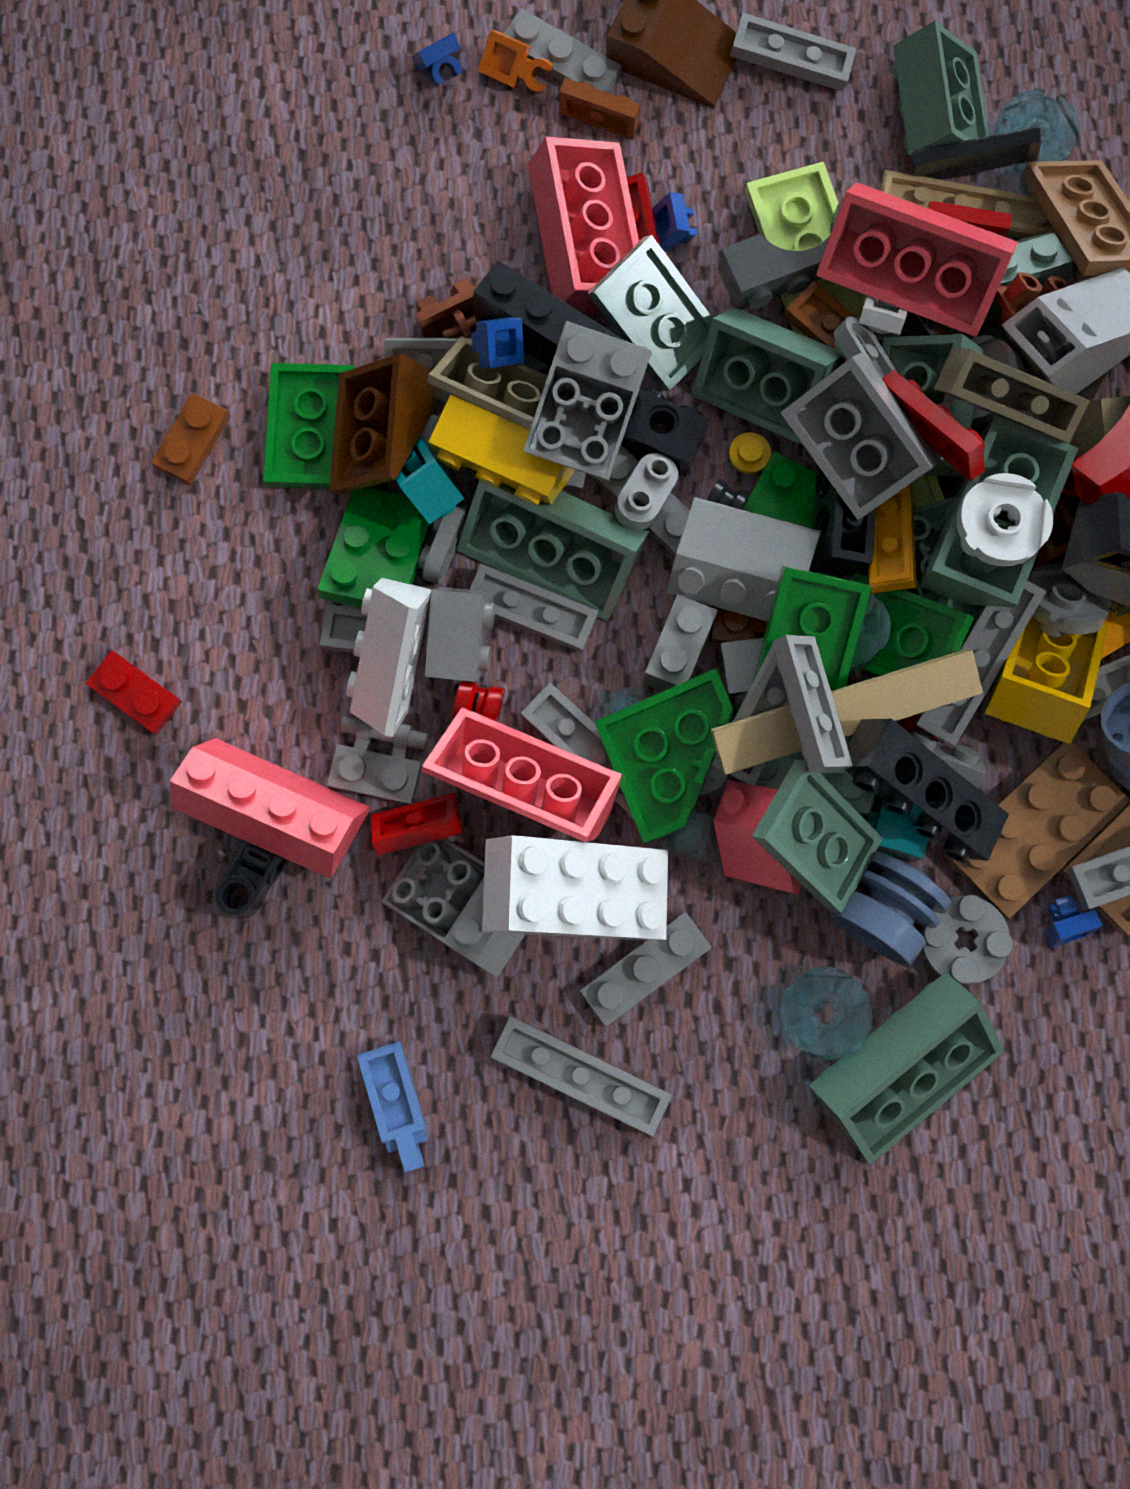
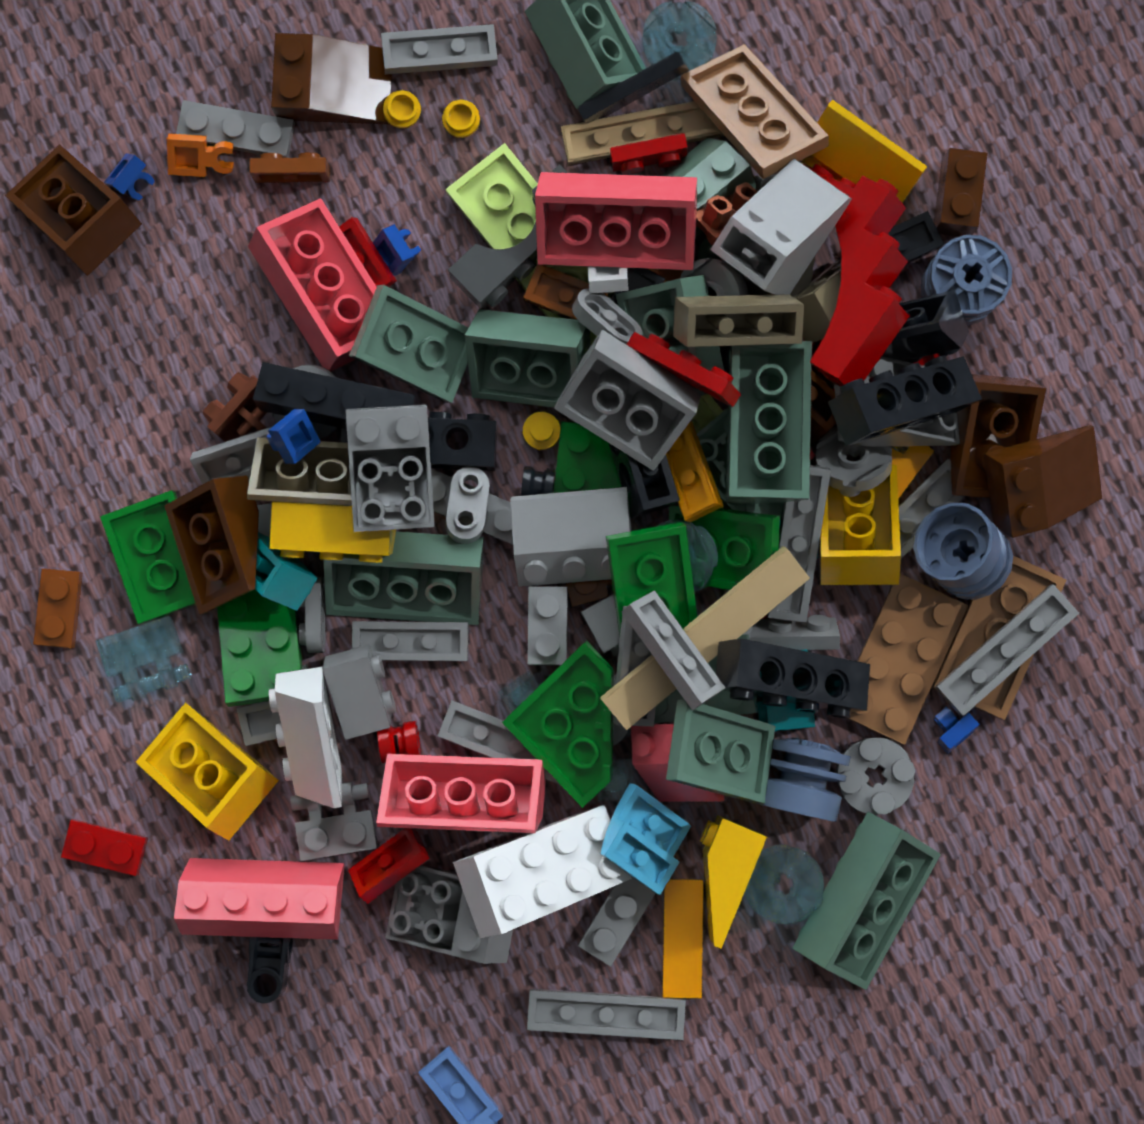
camera: 20 degrees left, 5 degrees up
(254, 507) = (140, 647): none -> clear light blue plate
(270, 657) = (206, 772): none -> yellow slope
(373, 69) = (74, 209): none -> reddish brown slope
(693, 1028) = (683, 938): none -> light orange tile
(696, 902) = (644, 838): none -> medium azure slope
(732, 95) = (401, 109): none -> yellow plate
(773, 968) = (728, 866): none -> yellow slope
(788, 126) = (461, 118): none -> yellow plate
(984, 537) = (785, 415): white plate -> none

